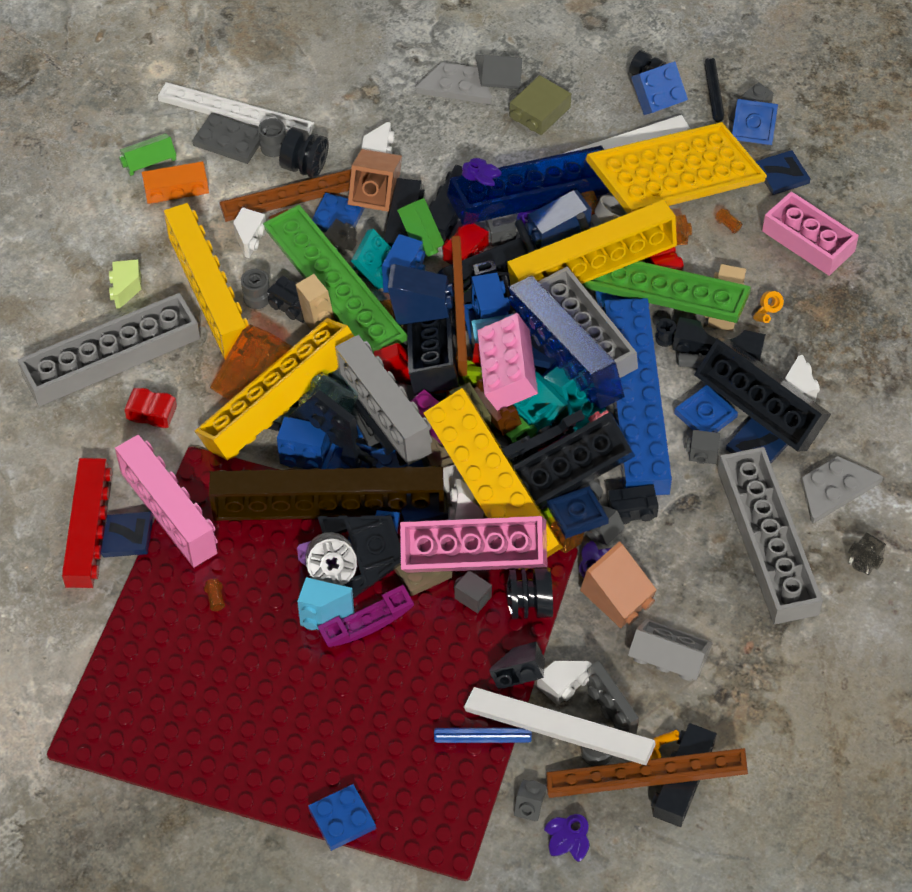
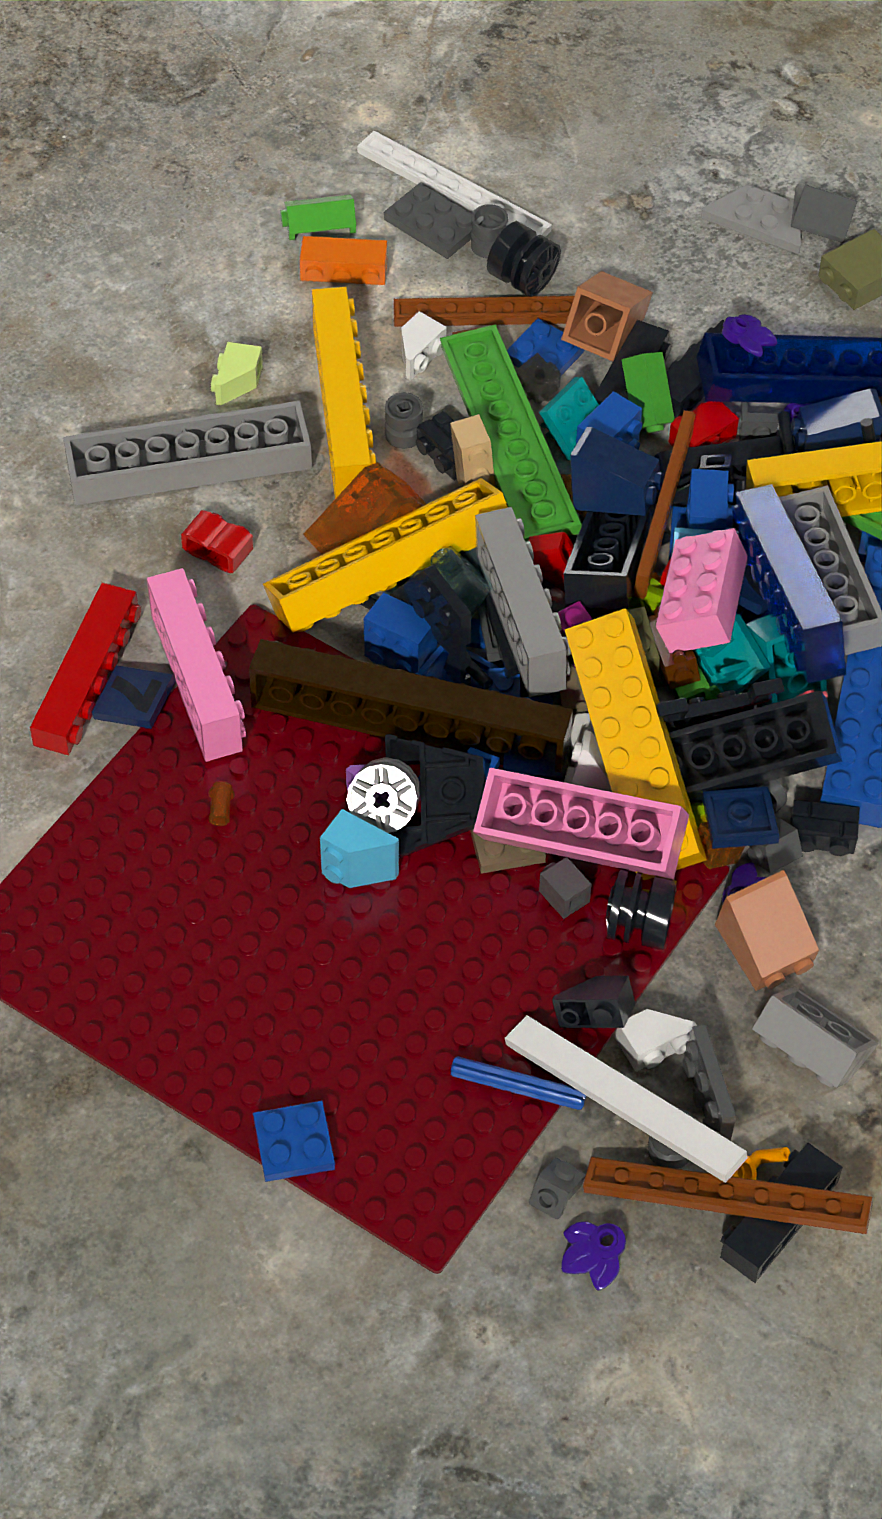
camera: 15 degrees right, 0 degrees up
(367, 620) = (411, 889): magenta slope -> none
(379, 139) = (631, 265): white slope -> none

